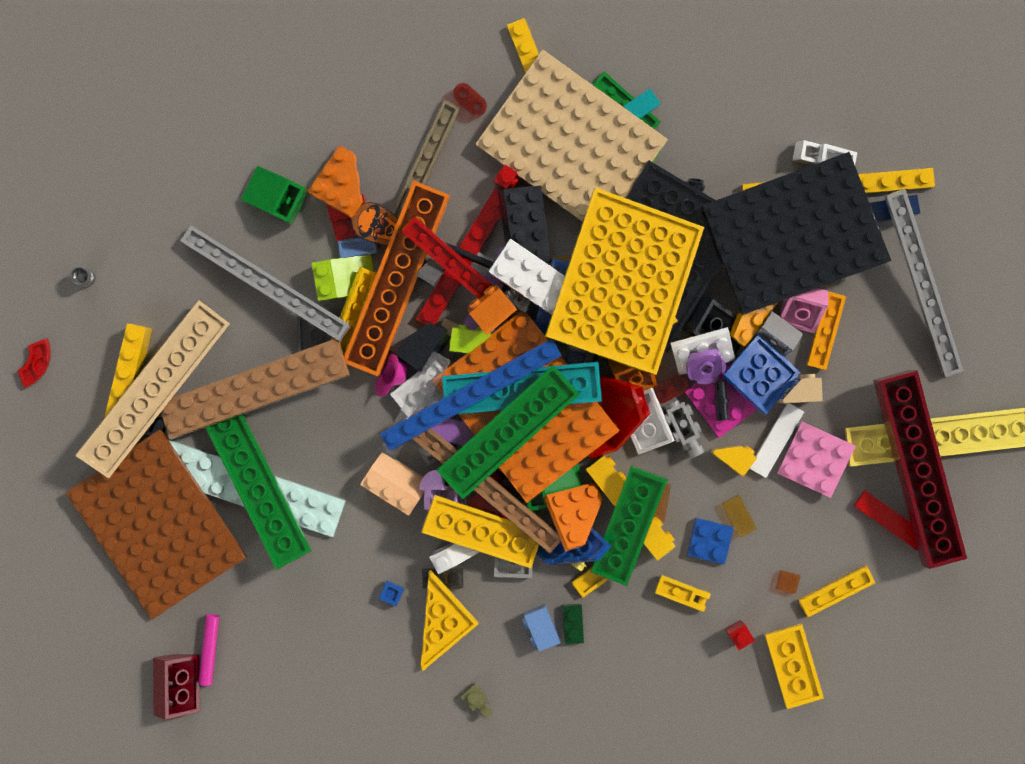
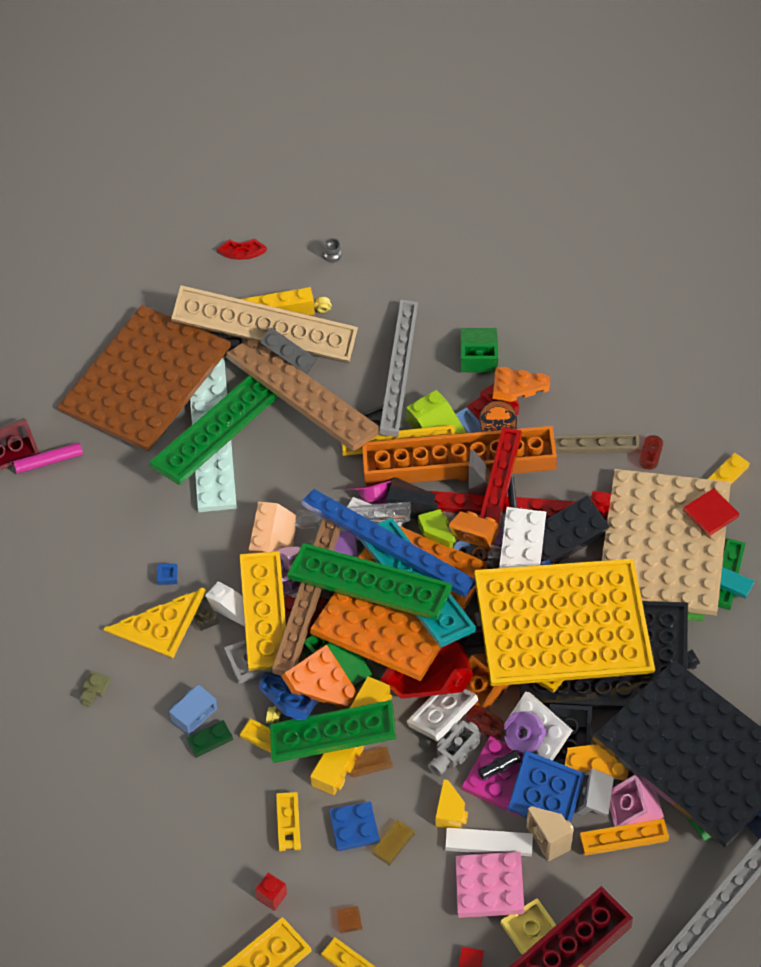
camera: 70 degrees right, 35 degrees down
(148, 317) = (322, 304): none -> light yellow plate
(197, 379) = (288, 350): none -> dark grey brick
(570, 87) = (711, 512): none -> red tile

